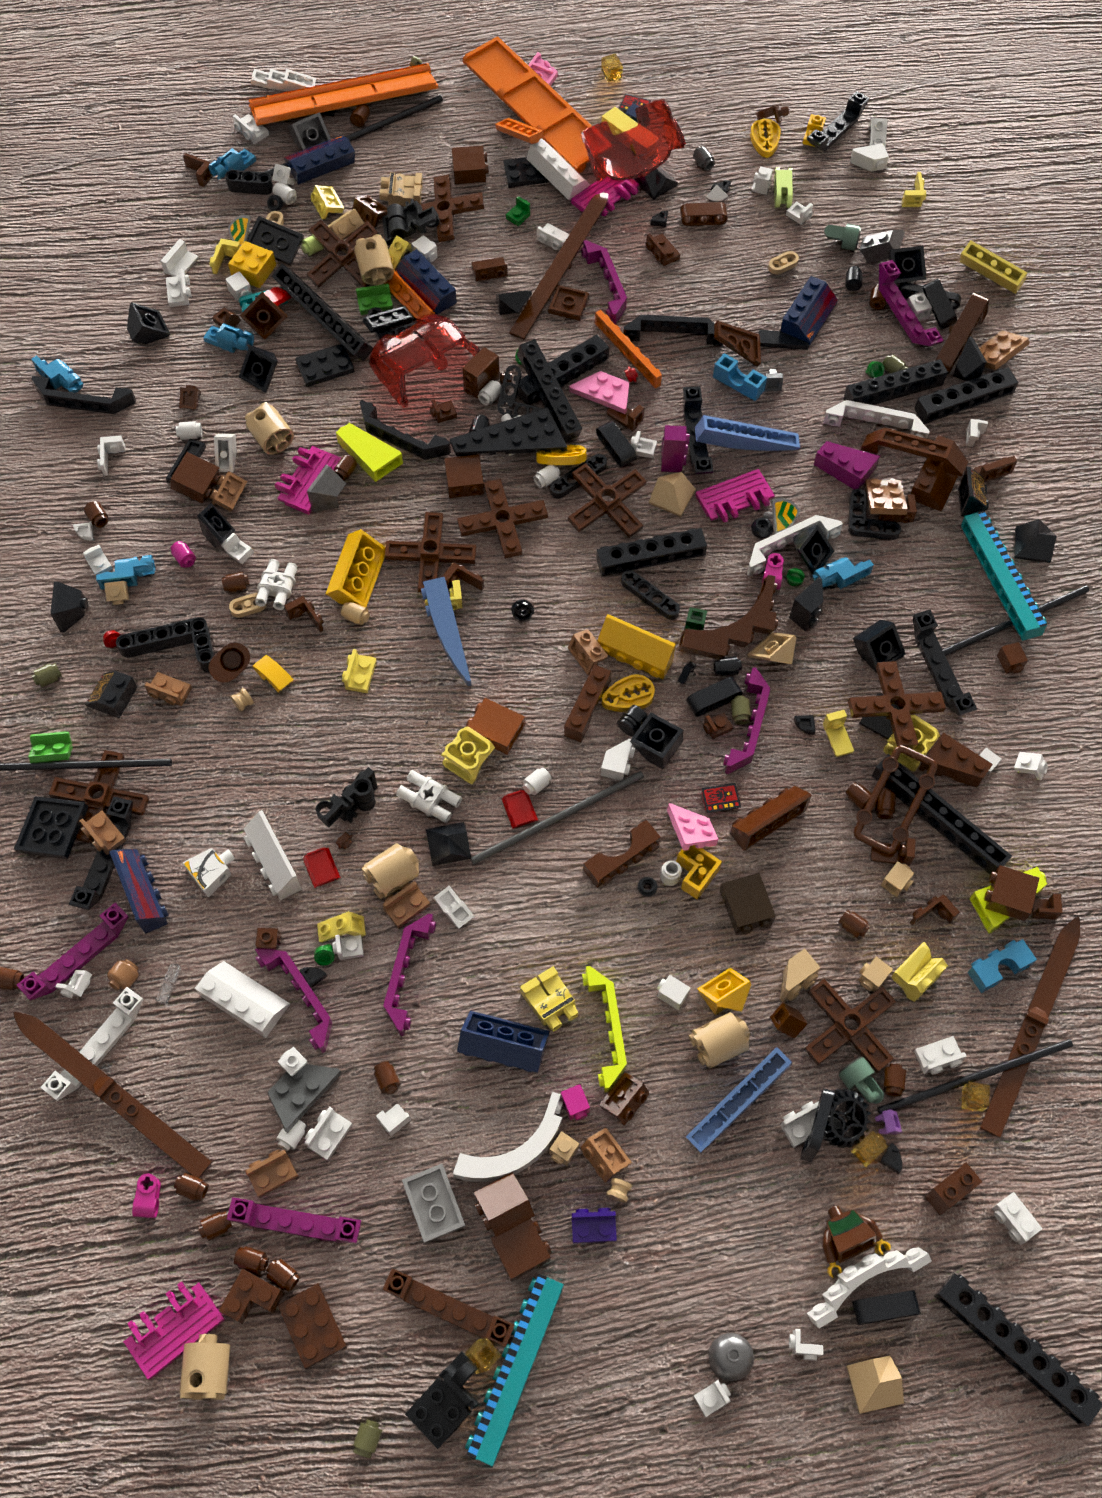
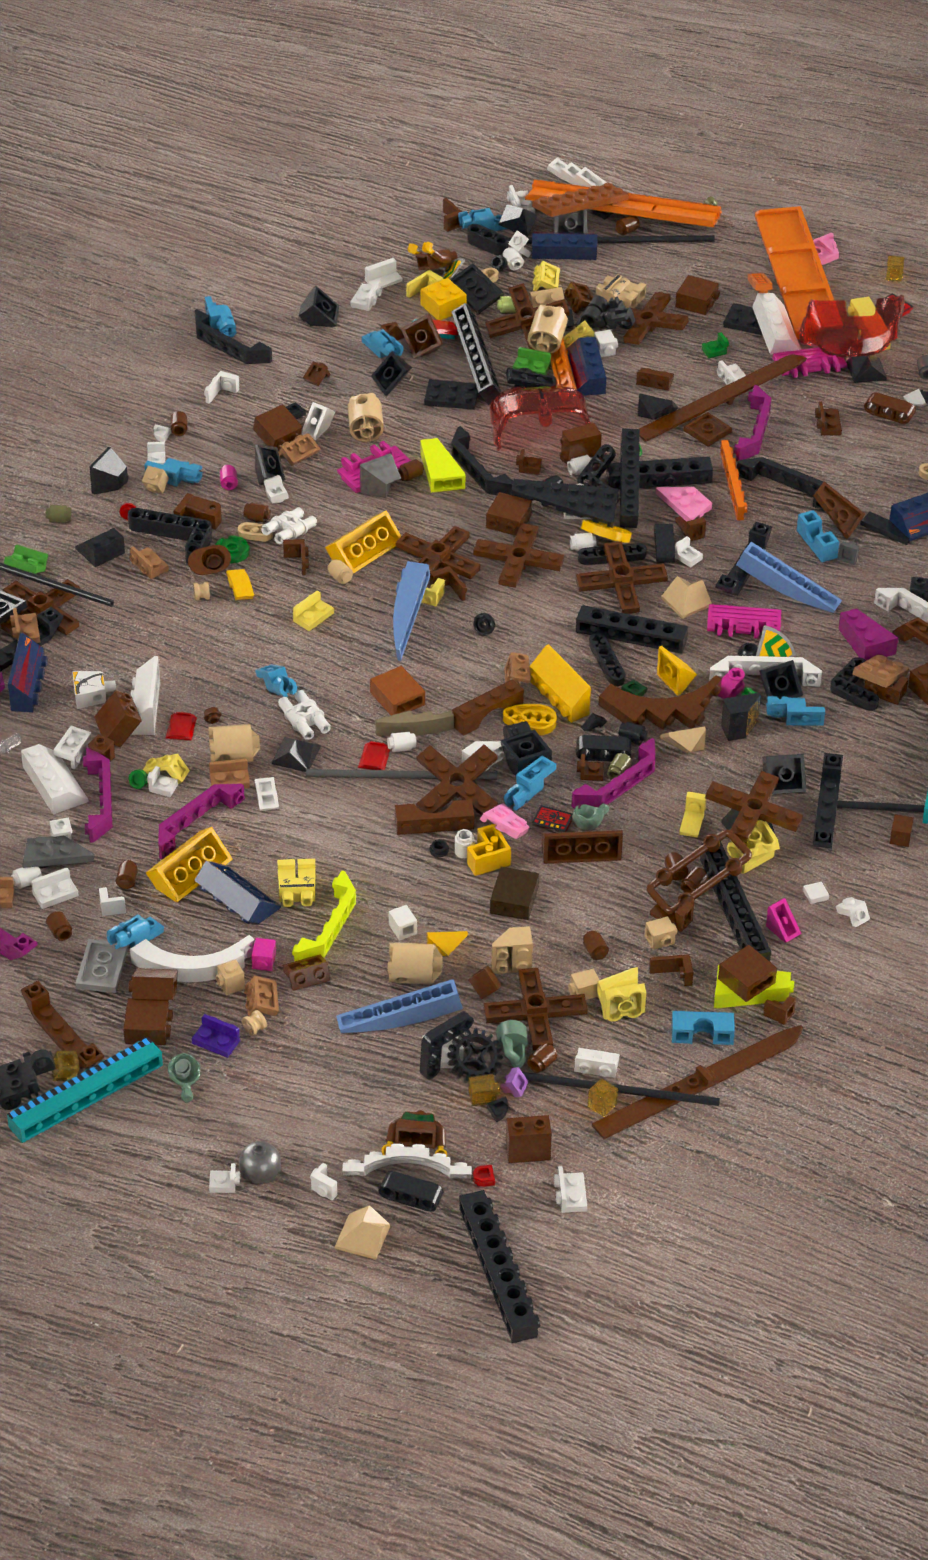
camera: 30 degrees right, 20 degrees down
(180, 604) = (200, 508): none -> reddish brown piece
(189, 430) = (299, 395): white brick -> none
(216, 225) = (432, 258): none -> reddish brown torso
(238, 286) = (418, 308): white brick -> none
(238, 631) = (237, 547): none -> green tile
(238, 950) = (73, 745): none -> white bracket
(262, 149) = (517, 219): none -> black slope
(264, 898) = (118, 718): none -> reddish brown piece
(310, 108) = (580, 200): none -> dark orange plate
(312, 975) = (120, 790): black tile -> none
(357, 795) = (240, 686): black plate -> none
(361, 1177) = (59, 926): none -> reddish brown brick
(384, 771) = (277, 680): none -> dark azure plate
(437, 1033) = (178, 870): none -> yellow slope
(442, 1147) = (134, 931): none -> dark azure plate
(467, 753) = (356, 697): light yellow piece -> none
(531, 758) = (418, 724): none -> dark tan slope
(597, 1293) = (184, 1071): none -> sand green hair
(622, 790) = (448, 773): none -> reddish brown piece
(631, 374) = (720, 499): red plate -> none
(659, 219) = (846, 399): black tile -> none
(674, 448) = (708, 558): magenta wedge -> none
(681, 770) = (529, 782): none -> dark azure plate
(720, 583) = (674, 671): none -> yellow slope
(755, 780) = (589, 817): none -> sand green hair
(805, 723) = (671, 801): black tile -> none
(932, 1244) = (483, 1176): none -> red tile
(957, 761) = (782, 876): reddish brown wedge -> none
(987, 811) = (781, 921): none -> dark pink slope

